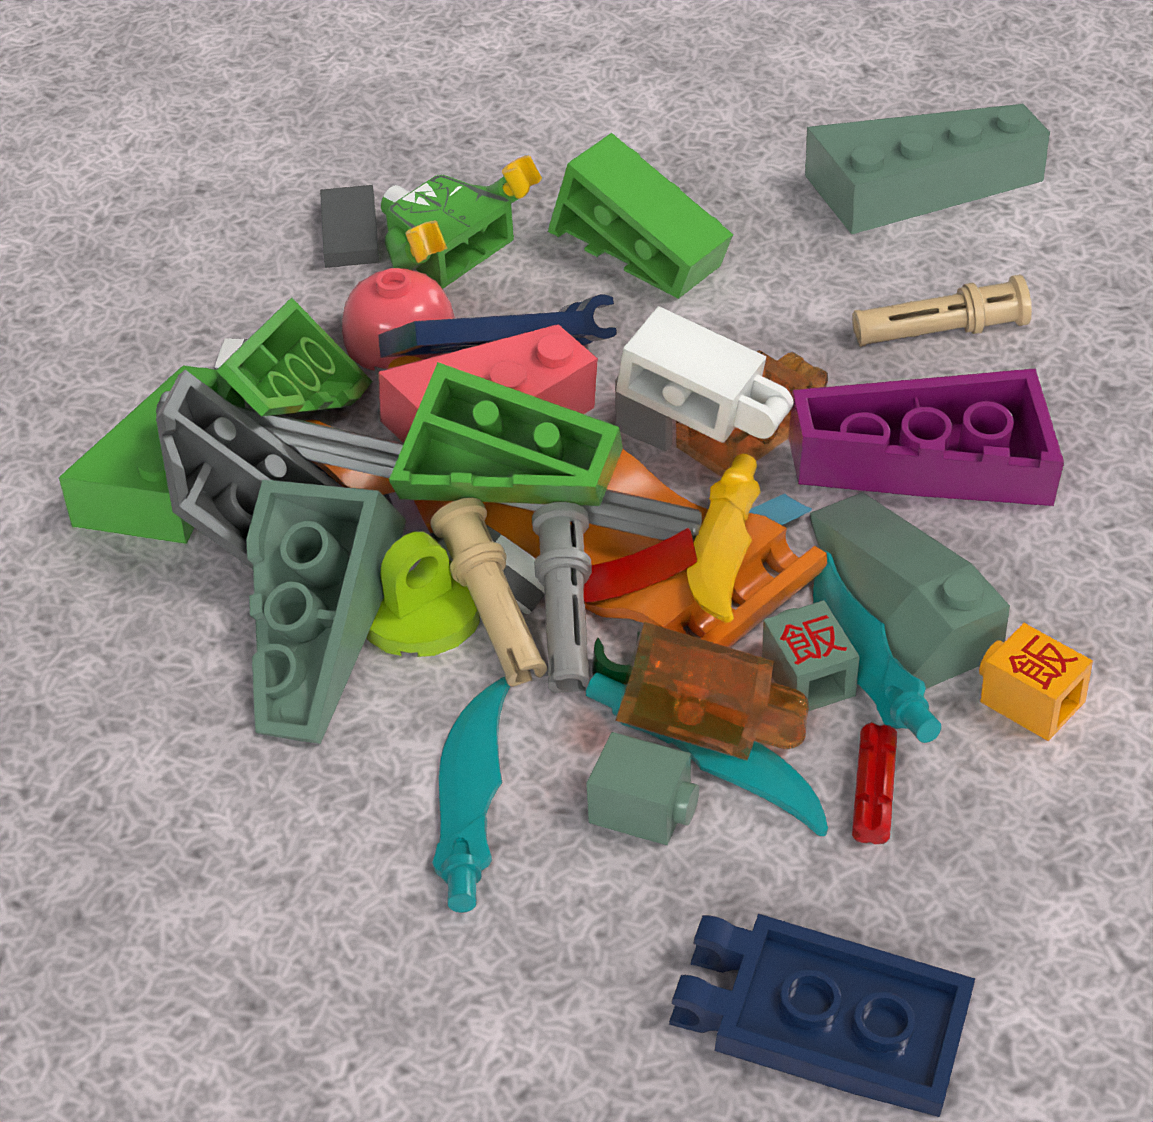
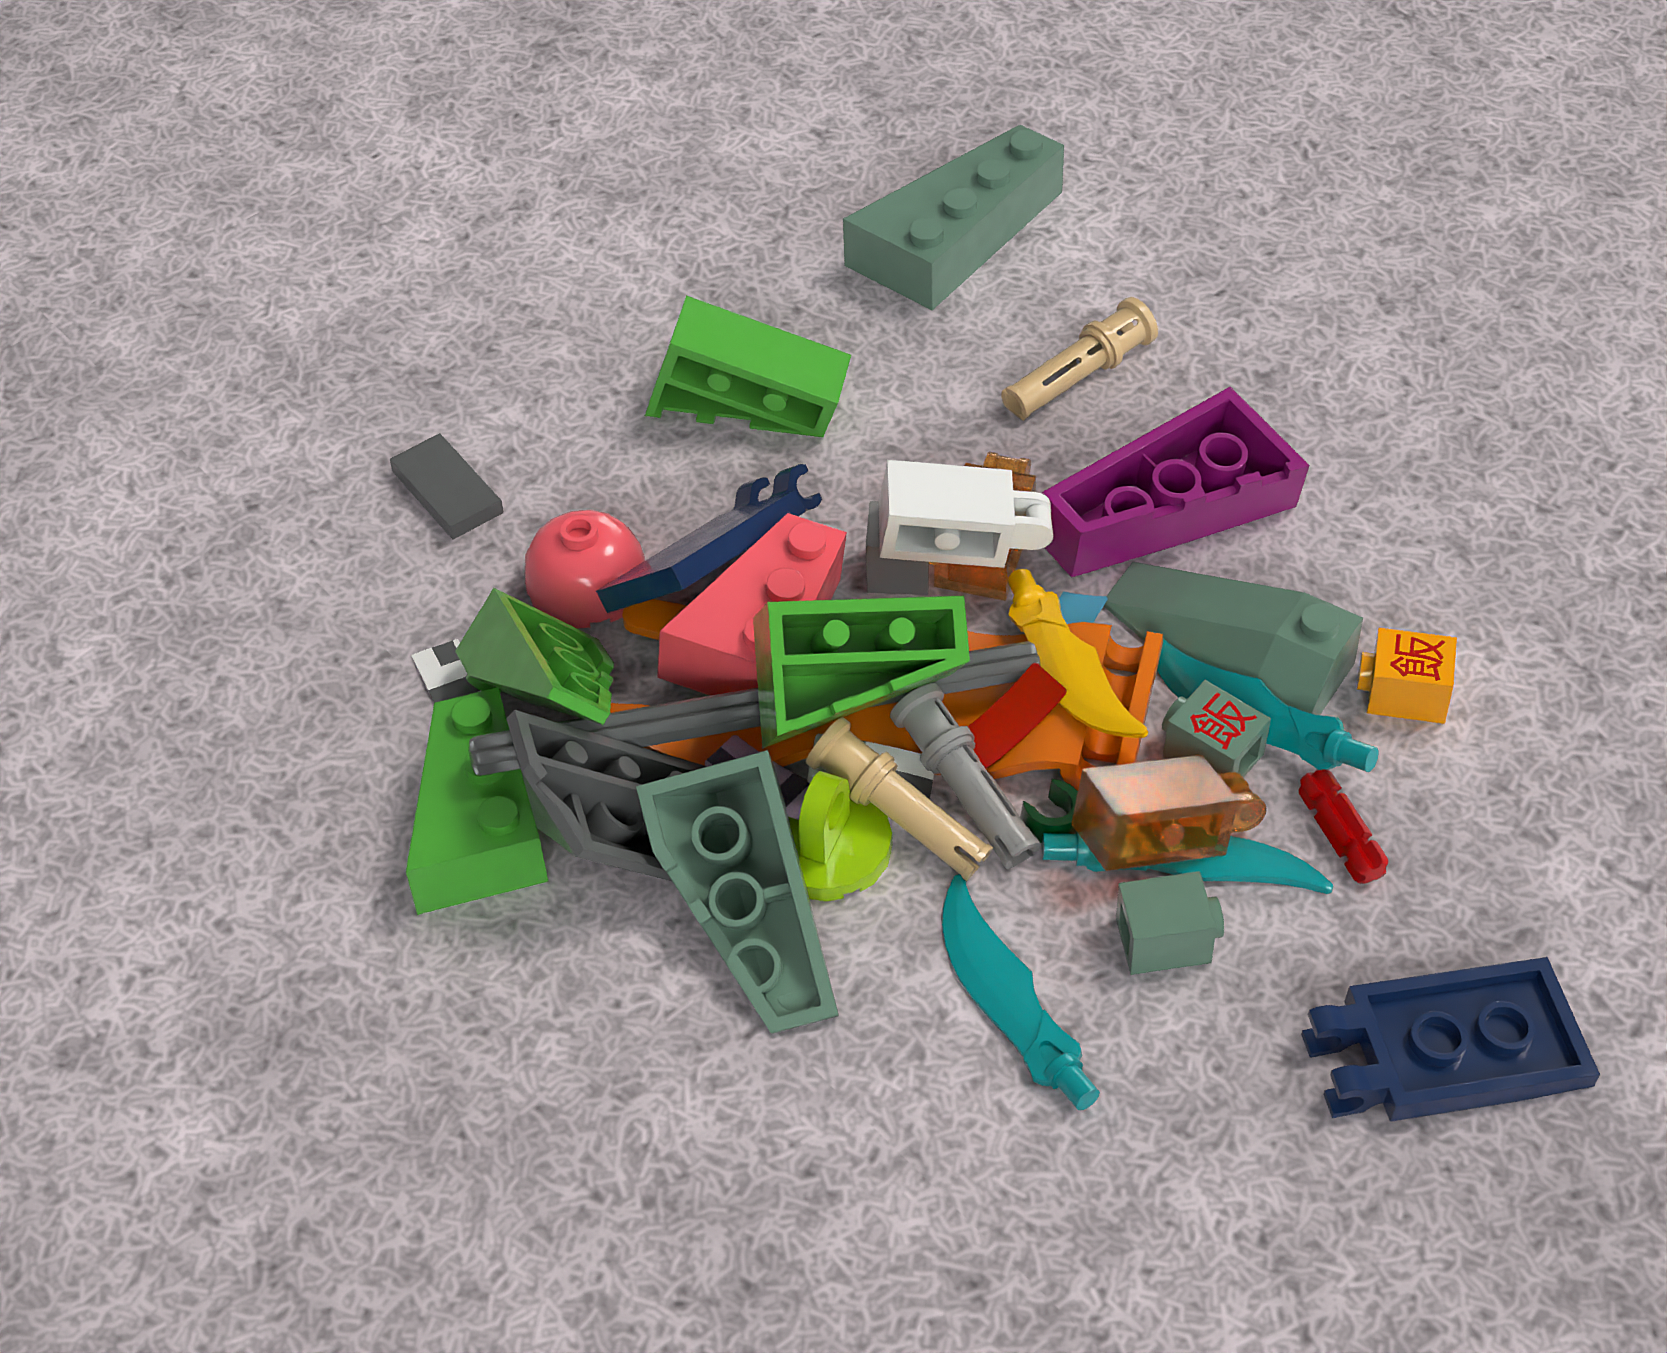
camera: 30 degrees left, 5 degrees up
(451, 224) = (560, 444): bright green torso -> none

